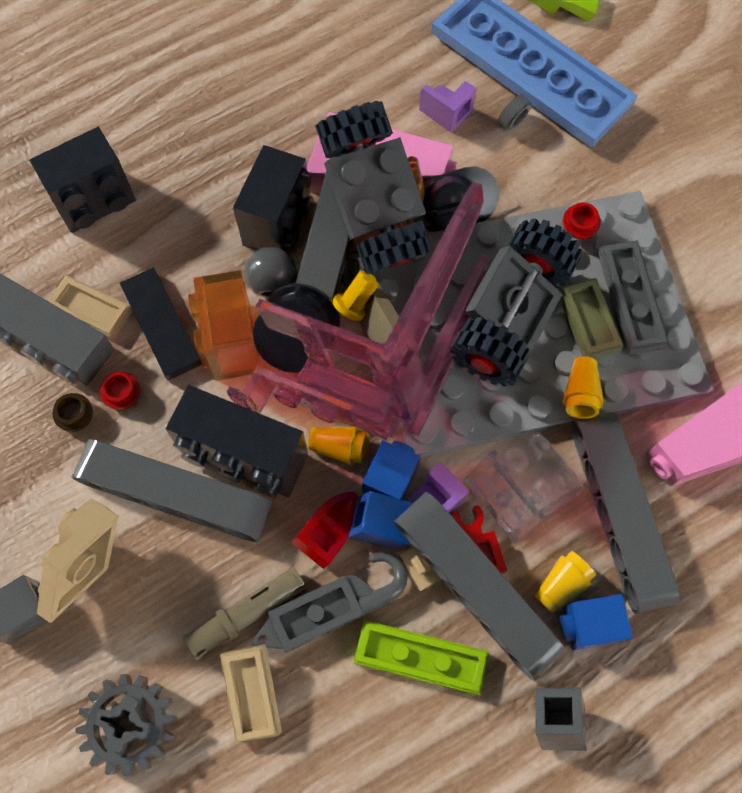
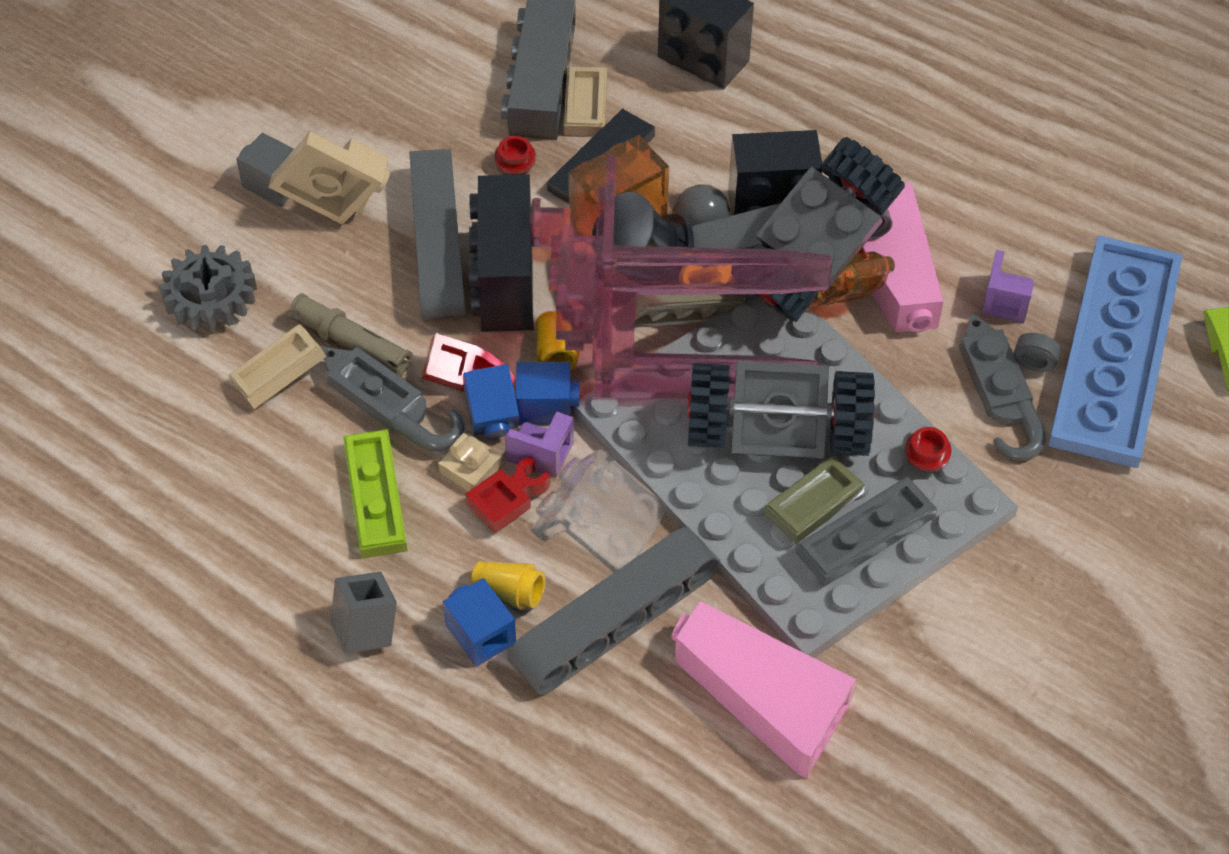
camera: 65 degrees right, 15 degrees down
(72, 412) = (474, 131): dark brown plate -> none
(447, 190) = (890, 338): black piece -> none
(479, 586) = (459, 494): dark grey beam -> none
(524, 150) = (1001, 386): none -> dark grey plate
(583, 391) = (722, 513): yellow cone -> none

